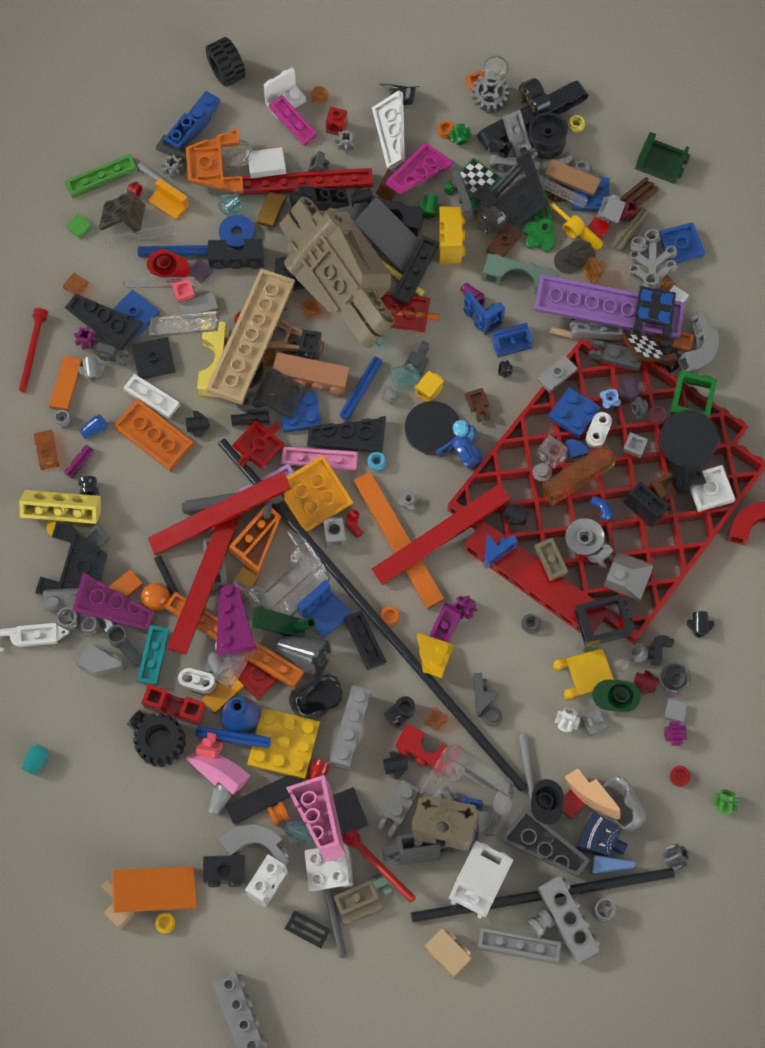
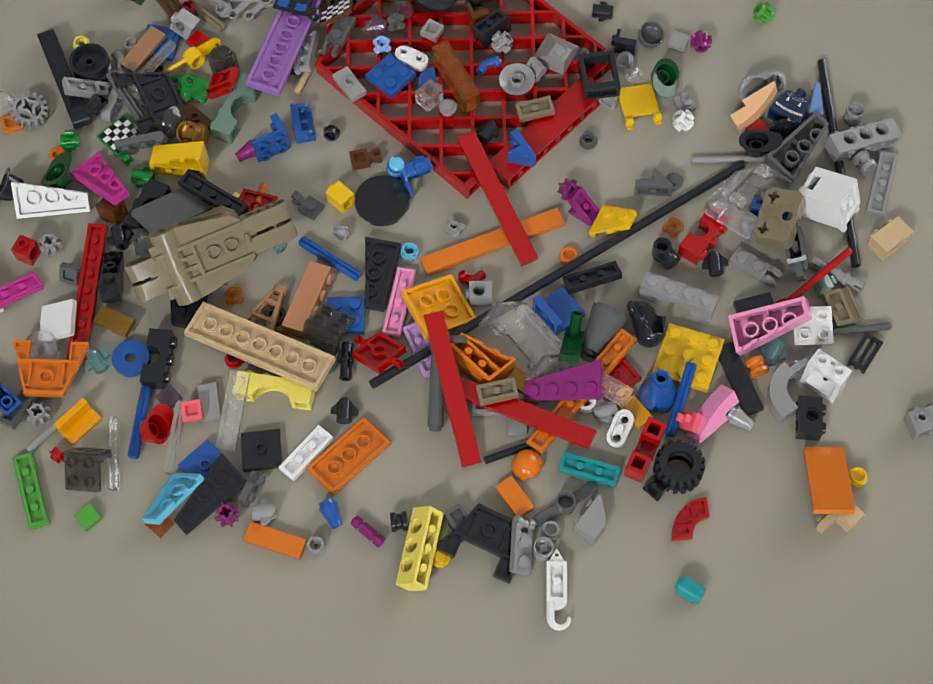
camera: 80 degrees left, 5 degrees down
(40, 316) = (190, 562): red piece -> none
(46, 449) = (348, 564): clear orange plate -> none
(96, 287) = (171, 496): none -> medium azure wing
(105, 603) = (533, 506): magenta wing -> none
(110, 755) = (689, 518): none -> red tile
(218, 555) = (497, 391): none -> dark tan plate
(310, 344) = (278, 293): black bracket -> none
(318, 769) = (719, 329): red cone -> none
(395, 901) = (840, 275): none -> light grey pin
(404, 375) = (324, 215): clear light blue bracket -> none
(421, 131) = (58, 173): none -> dark green piece
(480, 239) = (192, 132): none -> pearl gold wheel
(533, 93) = (46, 67): black animal -> none
(545, 257) = (222, 82): none -> red plate
(570, 828) = (779, 127): none -> black gear
(594, 269) = (243, 47): clear orange tile -> none
(629, 516) = (501, 42): none -> light grey gear
(645, 682) = (651, 58): dark red piece -> none
(676, 856) = (809, 55): dark grey gear -> none
(679, 776) = (737, 46): red tile -> none

